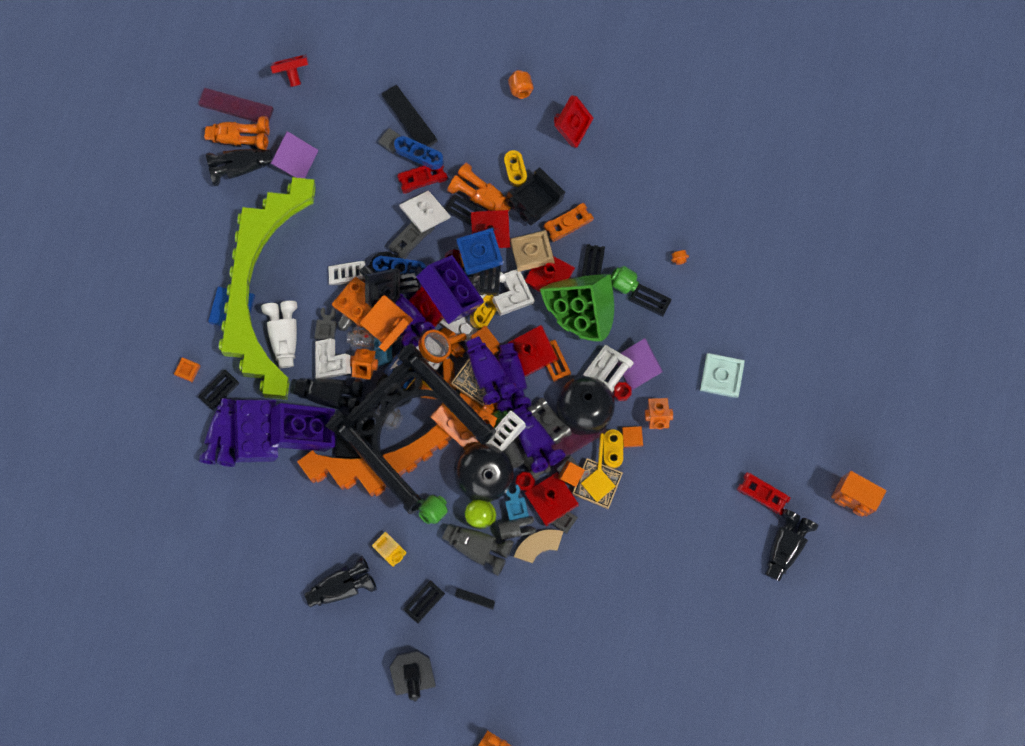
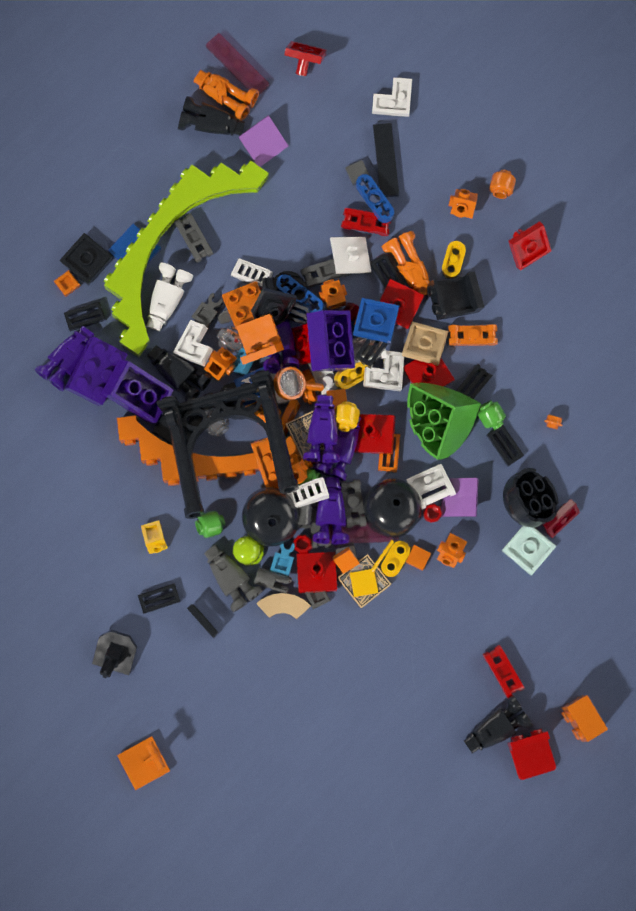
camera: 25 degrees right, 5 degrees up
(192, 339) = (86, 259): none -> black plate
(279, 270) = (193, 238): none -> dark grey plate
(341, 584) = (97, 544): black piece -> none
(392, 64) = (396, 104): none -> white plate
(428, 251) = (336, 299): none -> orange brick
(496, 117) = (463, 203): none -> orange brick
(501, 347) = (347, 416): none -> yellow head
(699, 331) = (530, 498): none -> black cylinder
(736, 331) = (564, 516): none -> dark red plate
(831, 551) = (532, 754): none -> red bracket

